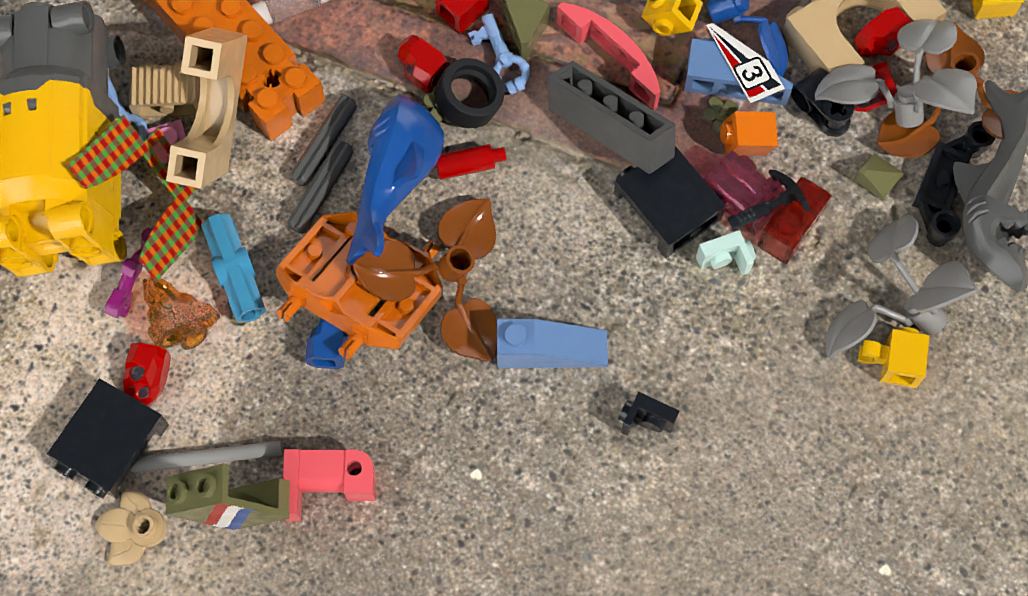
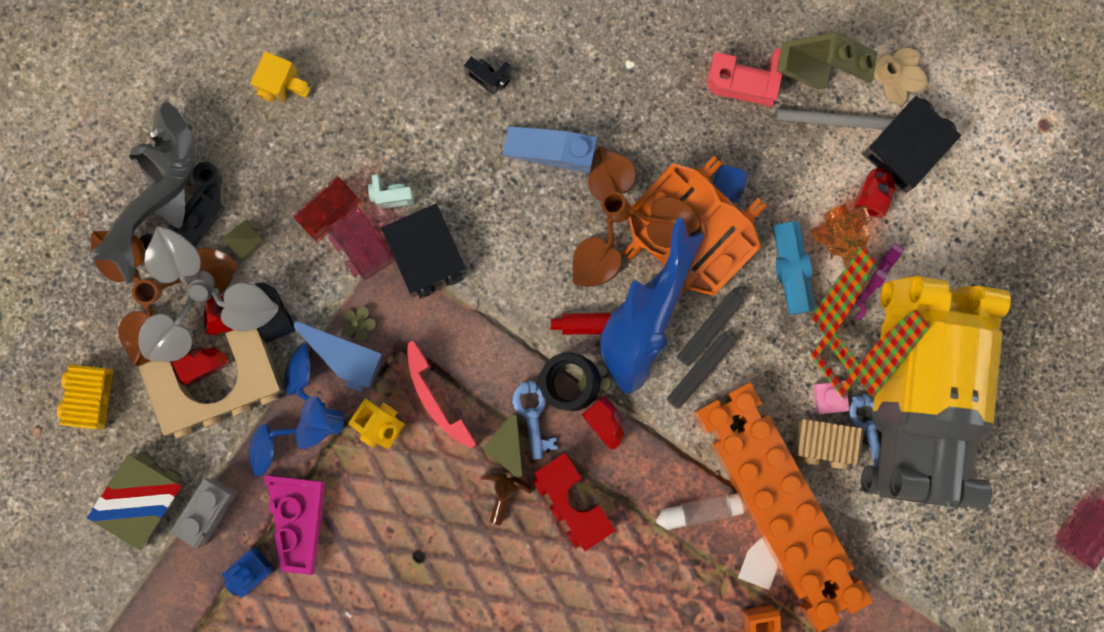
camera: 170 degrees left, 15 degrees up
(205, 152) = (793, 407): tan arch -> none
(611, 117) = (456, 323): dark grey brick -> none
(749, 133) = (342, 292): orange brick -> none
(750, 69) = (325, 347): sticker -> none
(761, 209) = (350, 213): black piece -> none
(941, 287) = (235, 97): light grey plant -> none

